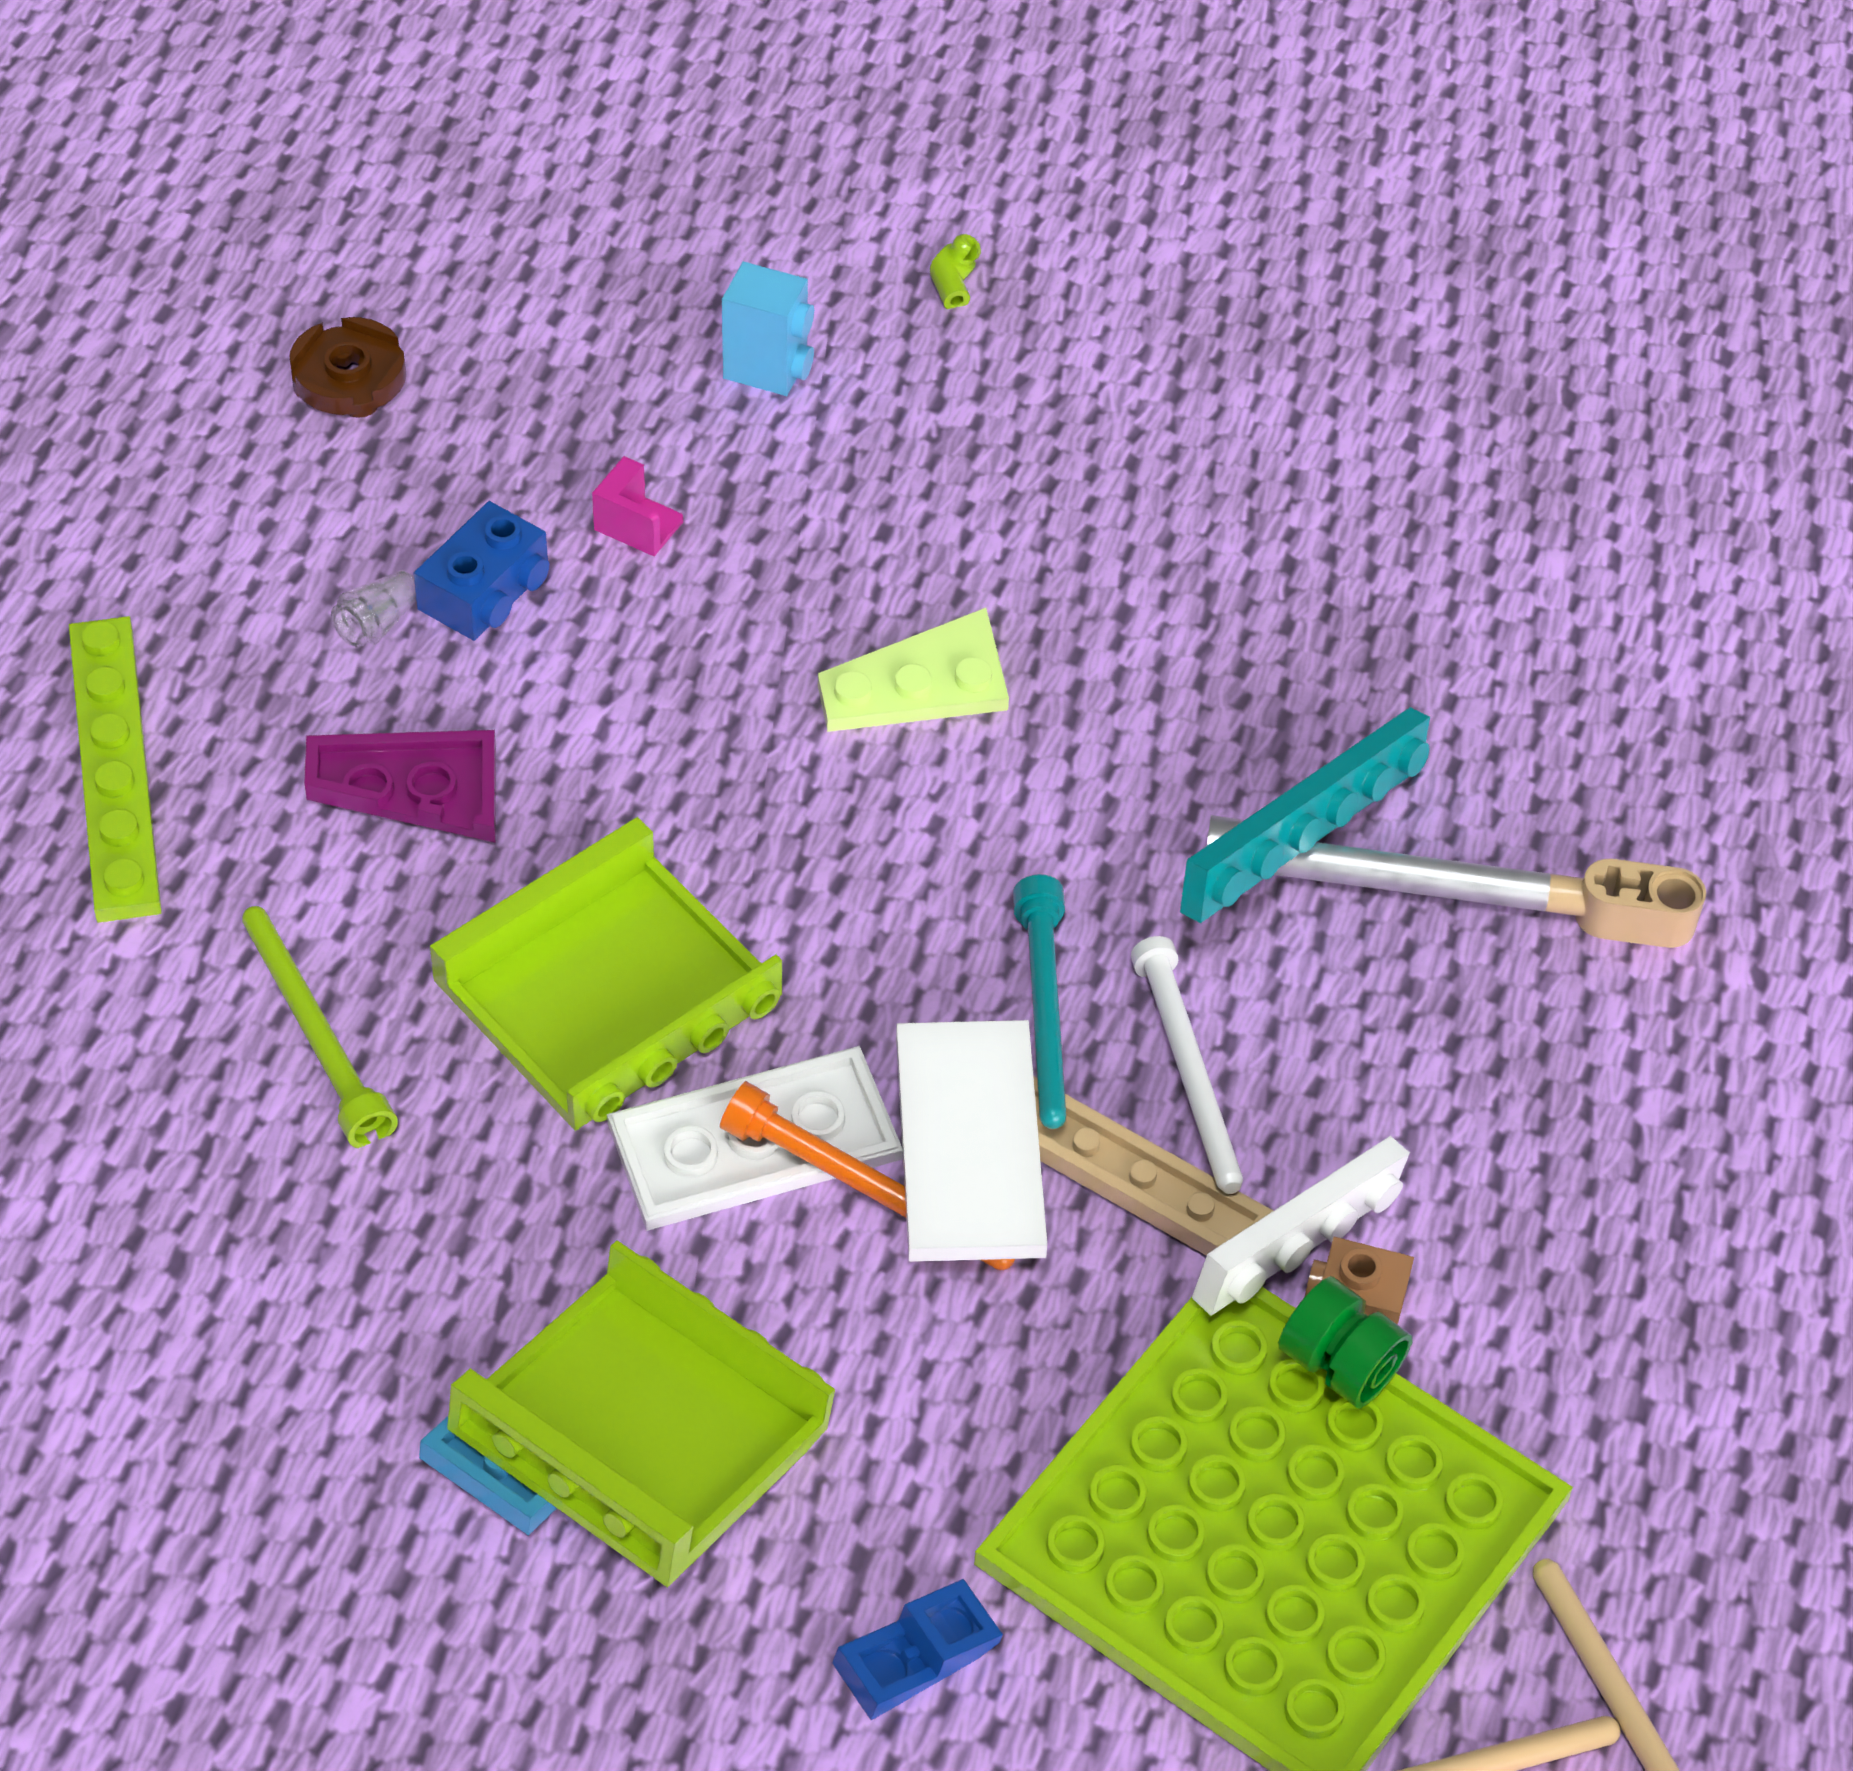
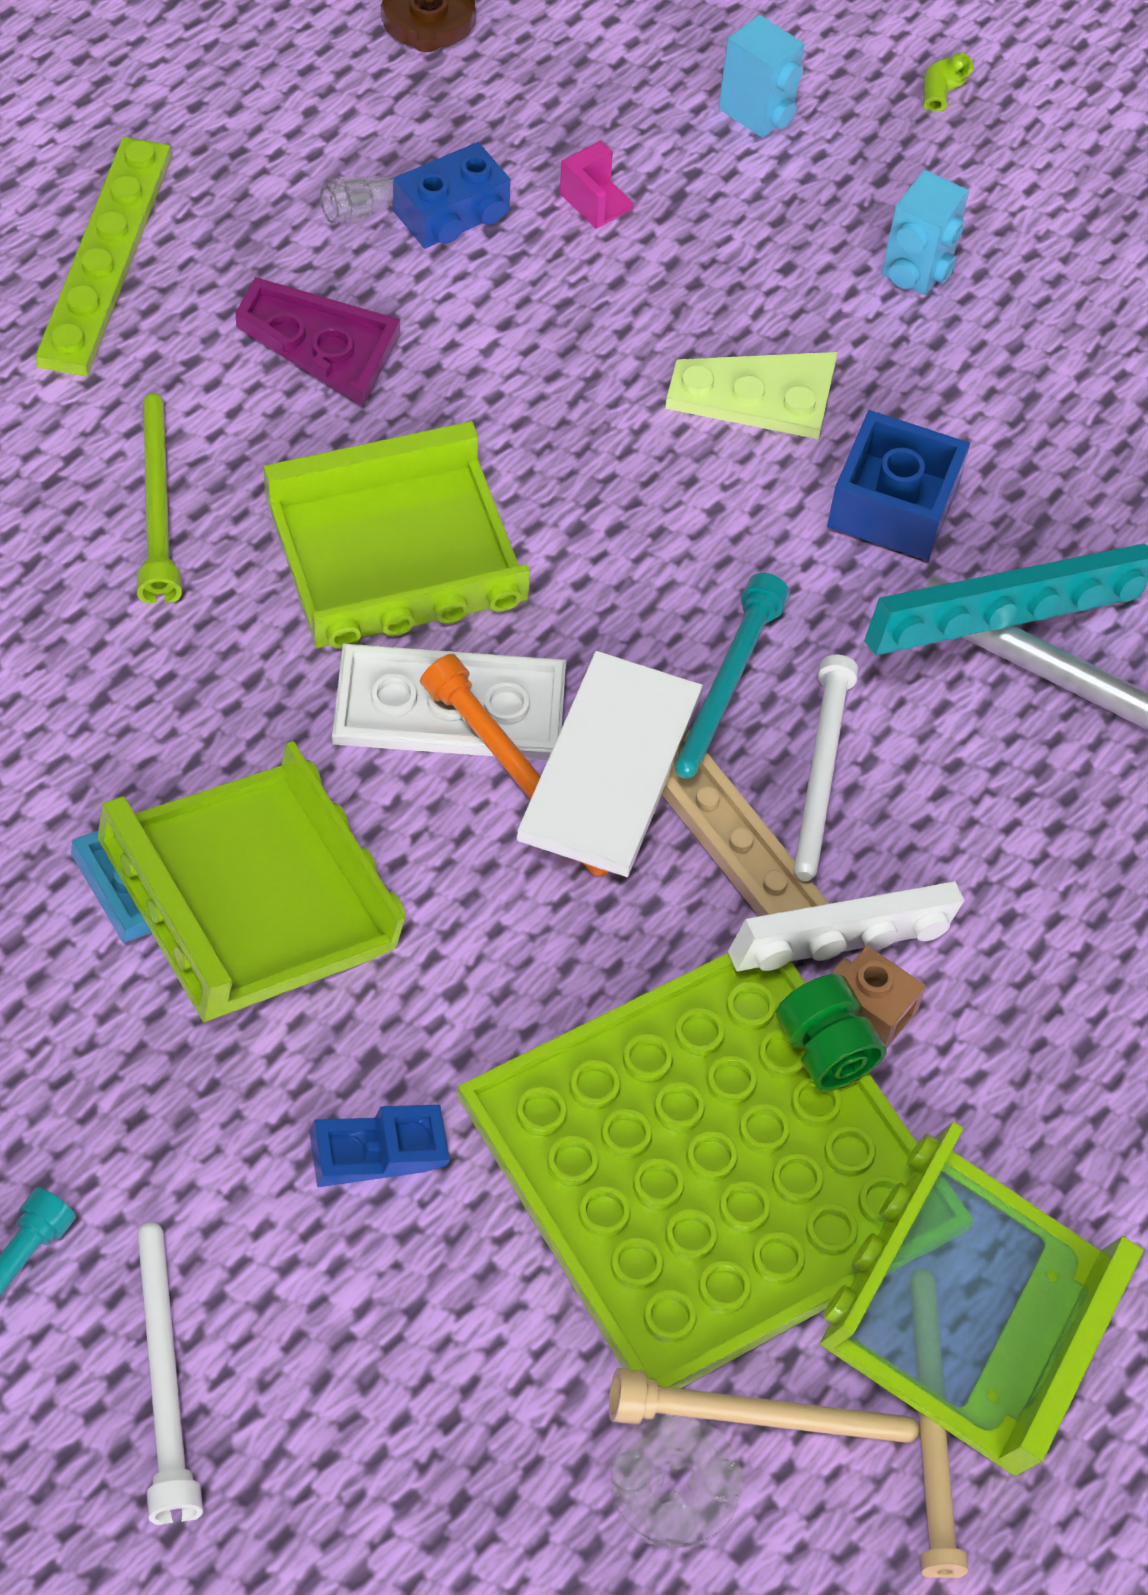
camera: 20 degrees right, 5 degrees up
(1025, 447) = (925, 233): none -> medium azure brick
(1126, 731) = (898, 485): none -> blue brick
(1625, 1572) = (977, 1306): none -> clear light blue panel

